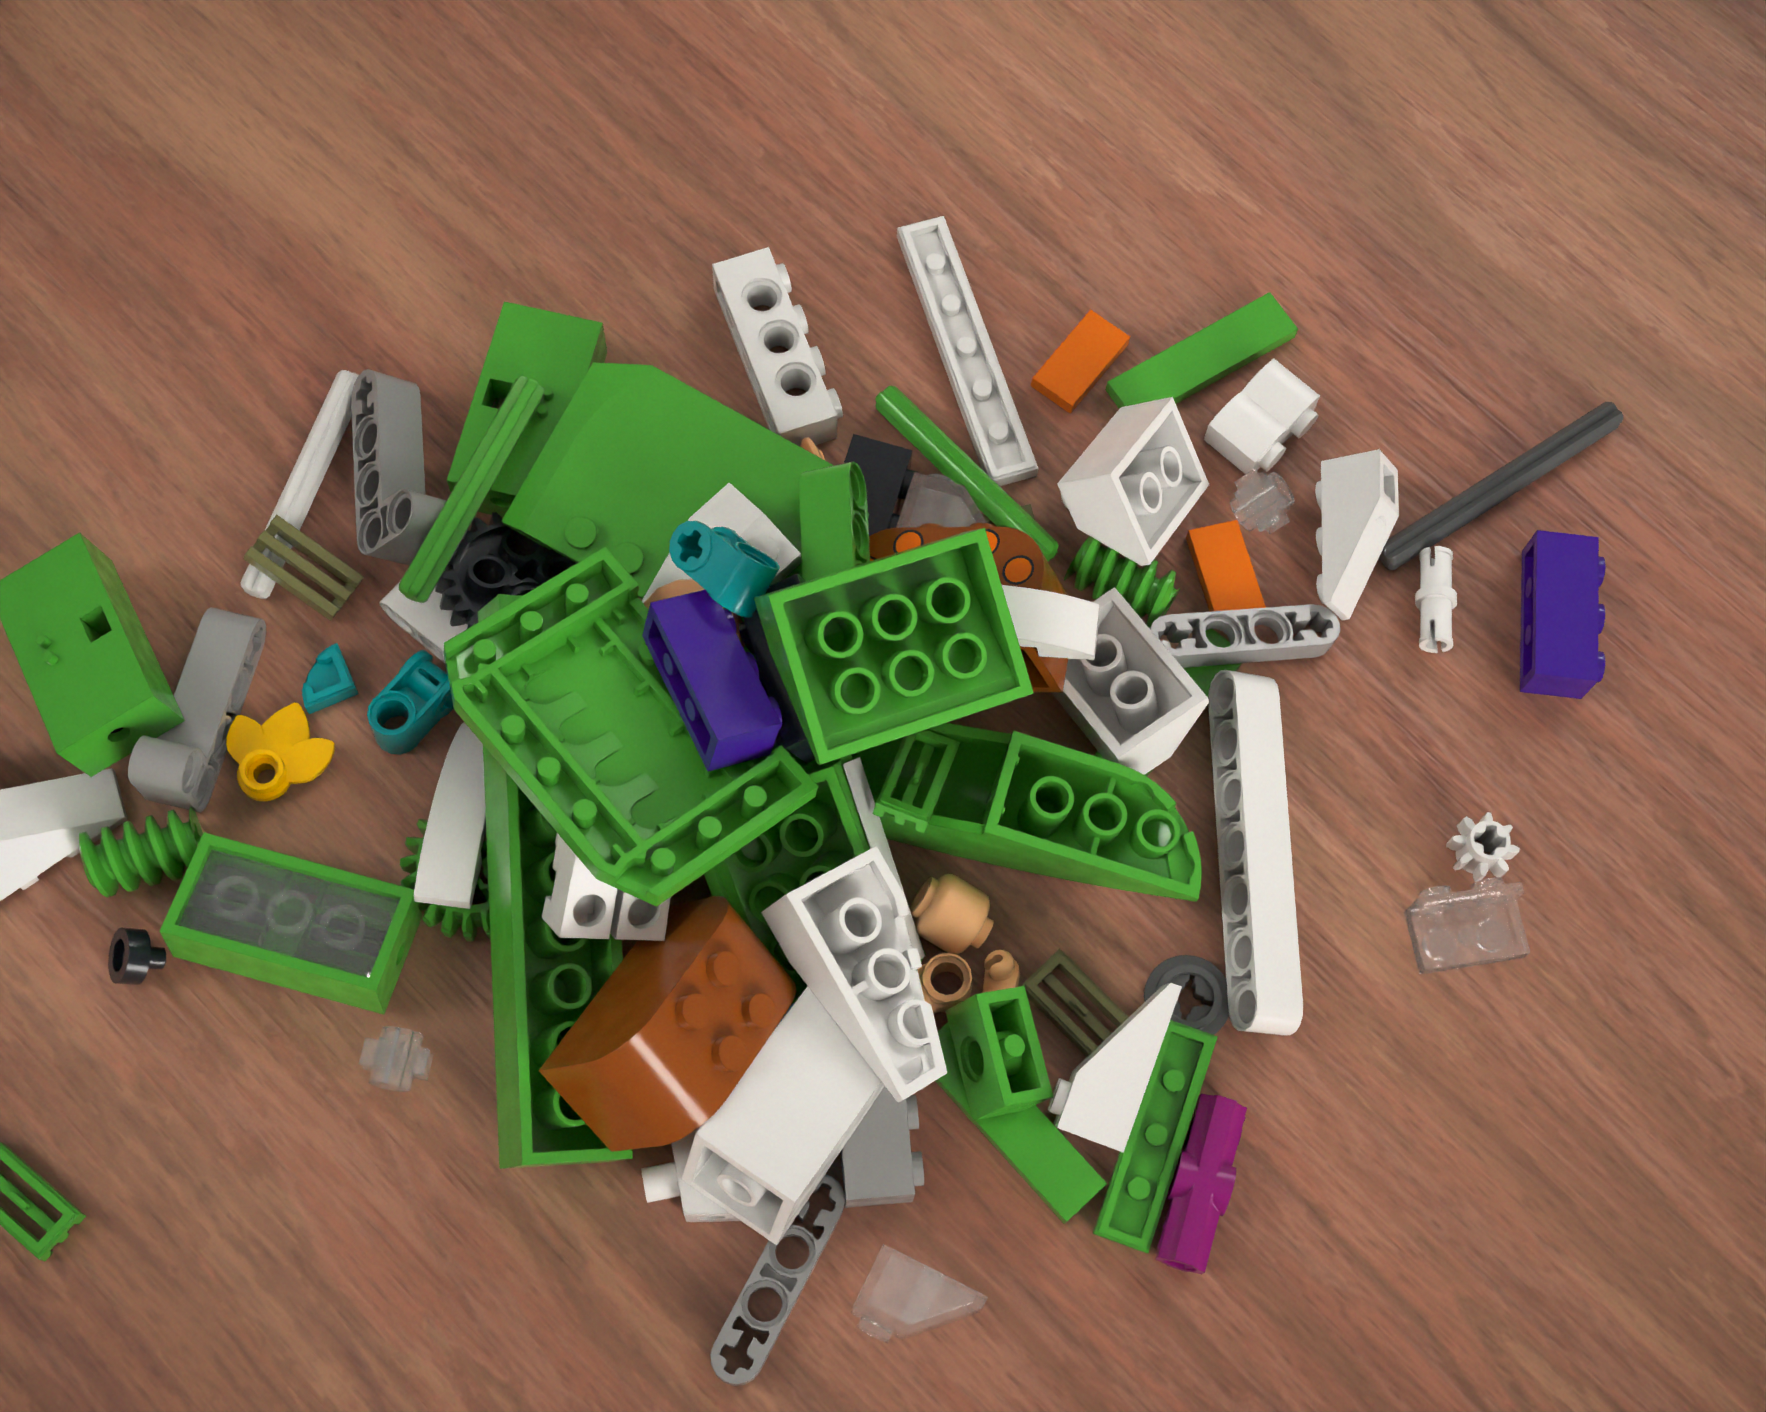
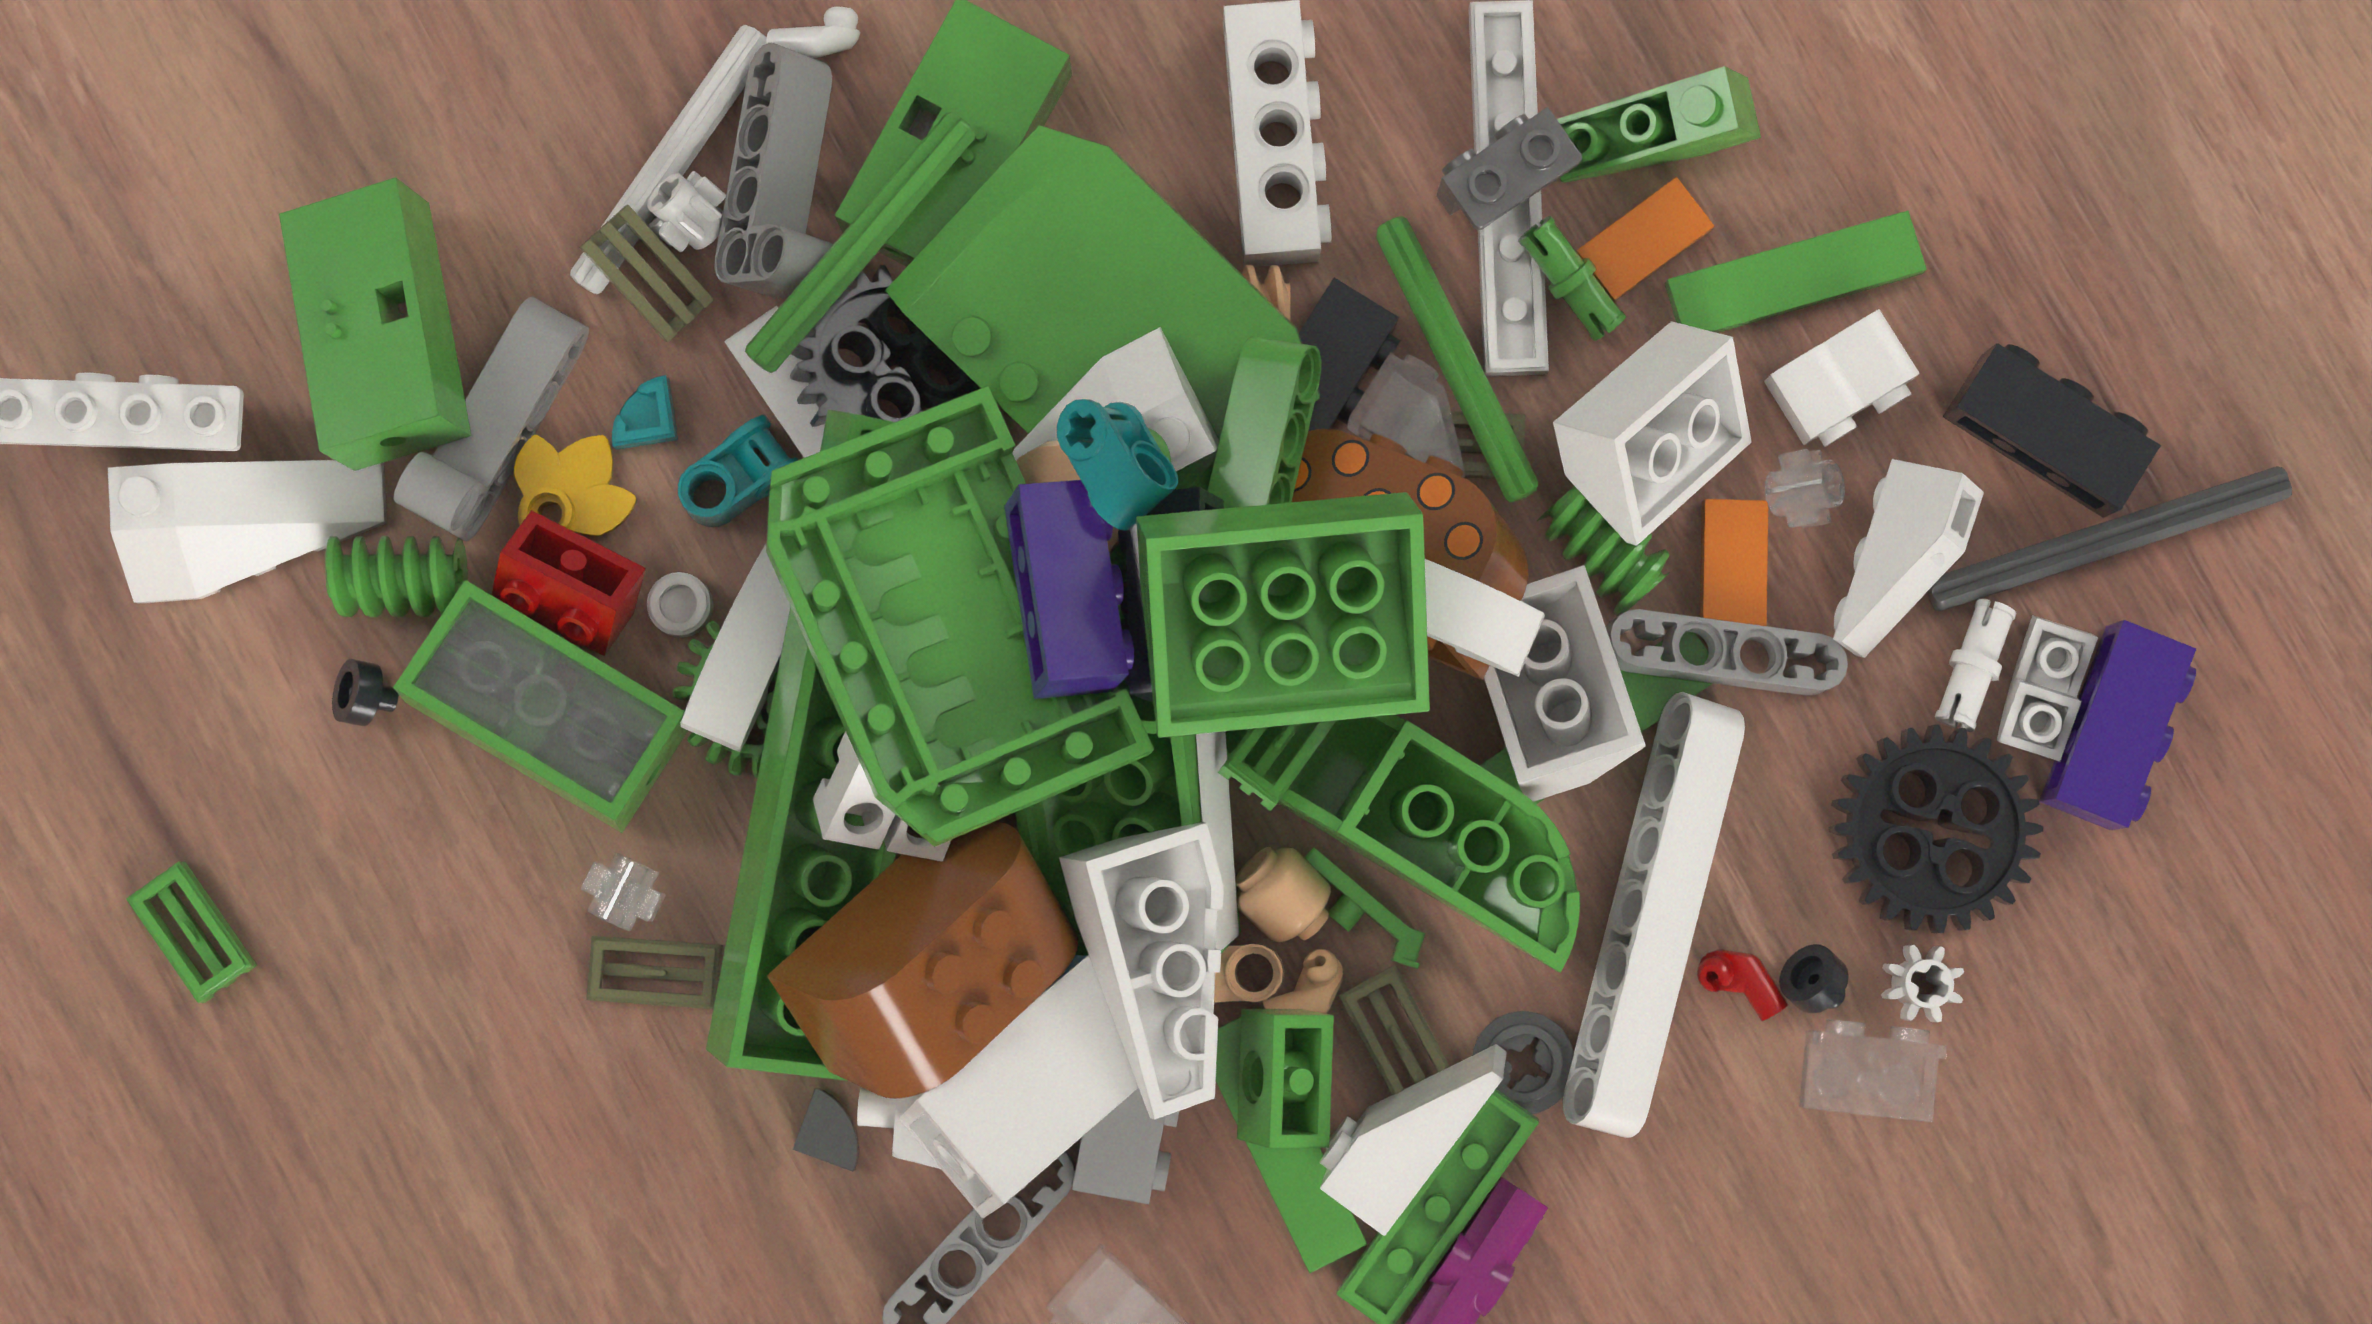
camera: 20 degrees right, 15 degrees up
(292, 815) = (568, 583): none -> red brick
(326, 512) = (686, 211): none -> white gear
(390, 819) = (680, 604): none -> white tile
(411, 364) = (818, 41): none -> white arm
(441, 1146) = (708, 975): none -> olive tile
(622, 1219) = (828, 1132): none -> dark grey tile
(962, 323) = (1509, 171): none -> flat silver bracket
(1015, 906) = (1357, 901): none -> bright green piece
(1035, 396) = (1572, 278): none -> bright green pin
(1064, 277) = (1663, 124): none -> bright green slope
(1340, 881) = (1742, 974): none -> red arm
(1397, 867) = (1814, 979): none -> black tile
(1431, 416) = (2053, 429): none -> black brick
(1456, 771) = (1947, 774): none -> black gear
(1493, 603) = (2045, 688): none -> white slope

